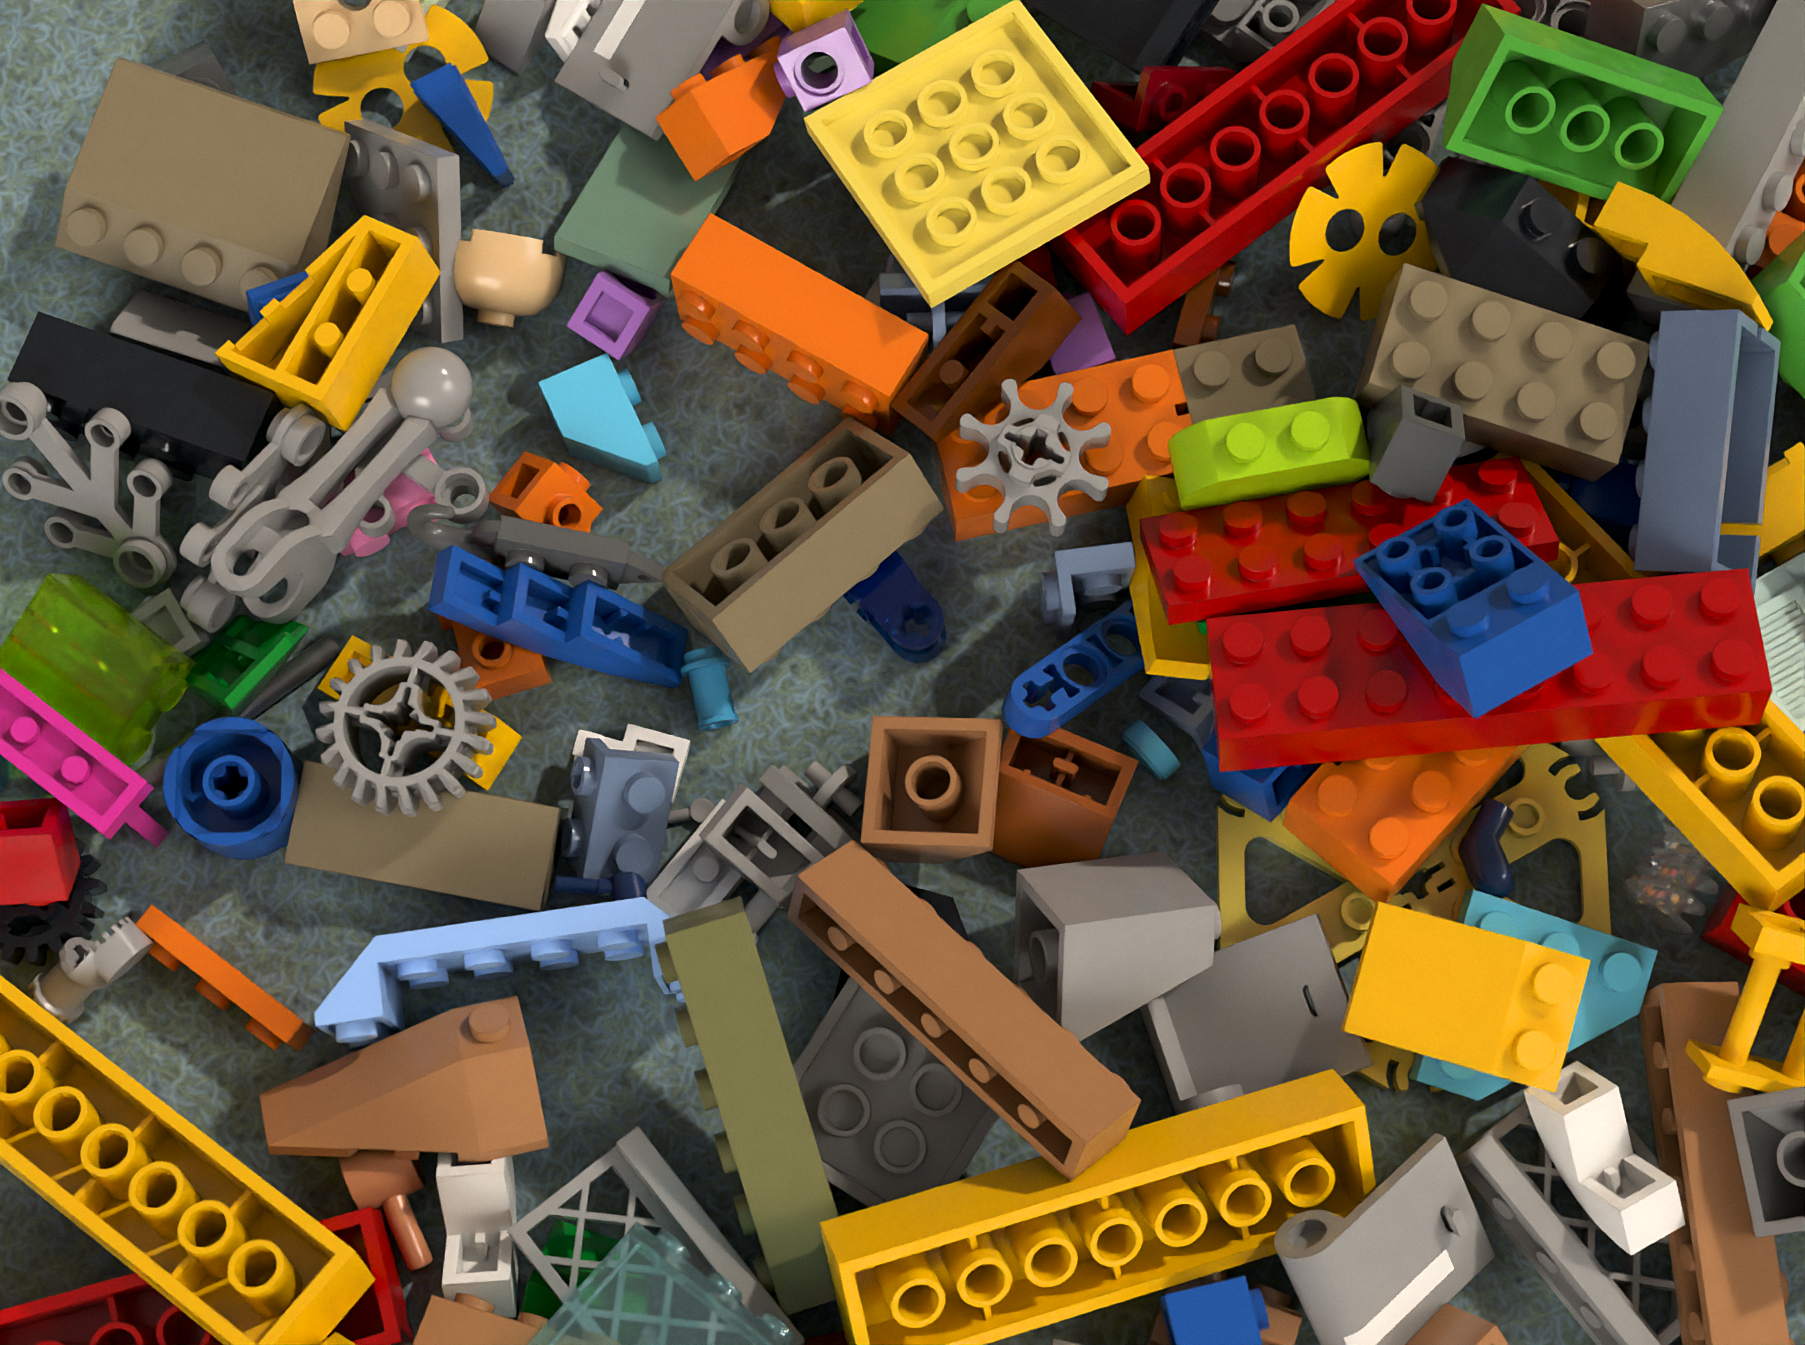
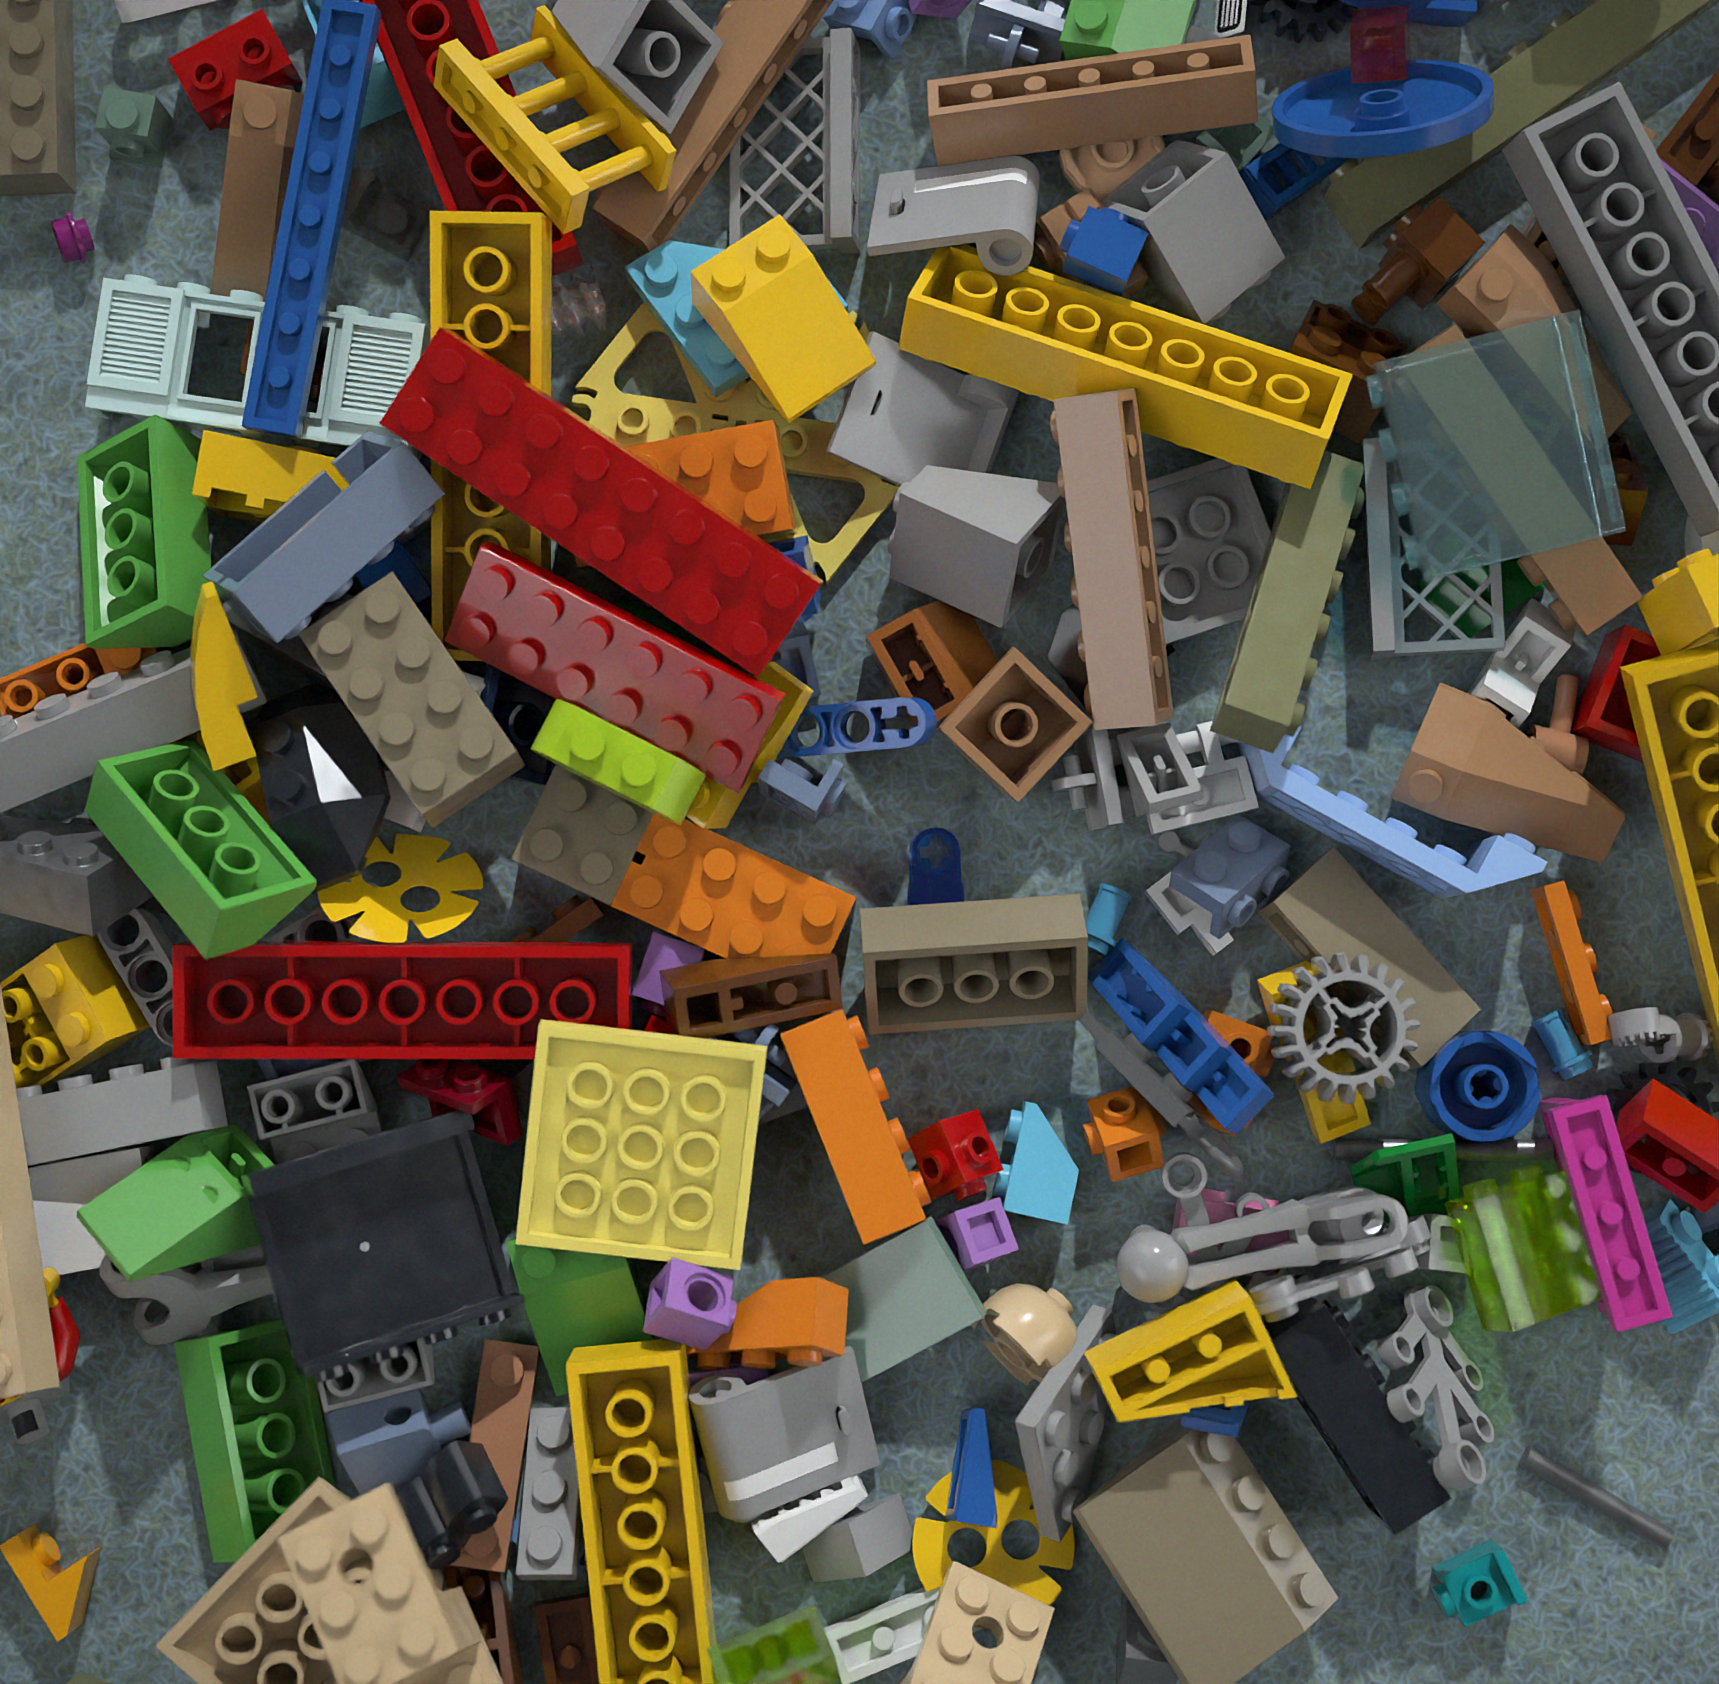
camera: 145 degrees left, 10 degrees up
(177, 330) = (1286, 1468): light grey slope -> none
(180, 897) = (1562, 1044): none -> dark azure pin
(619, 886) = (1266, 815): dark blue hand -> none
(685, 371) = (956, 1156): none -> red brick
(1018, 438) = (752, 902): light grey gear -> none
(1150, 750) = (842, 651): medium azure tile -> none
(1413, 442) = (522, 686): dark grey slope -> none
(1477, 606) = (585, 533): blue slope -> none
(1482, 852) = (684, 411): dark blue arm -> none
(1593, 1153) = (775, 161): white brick -> none

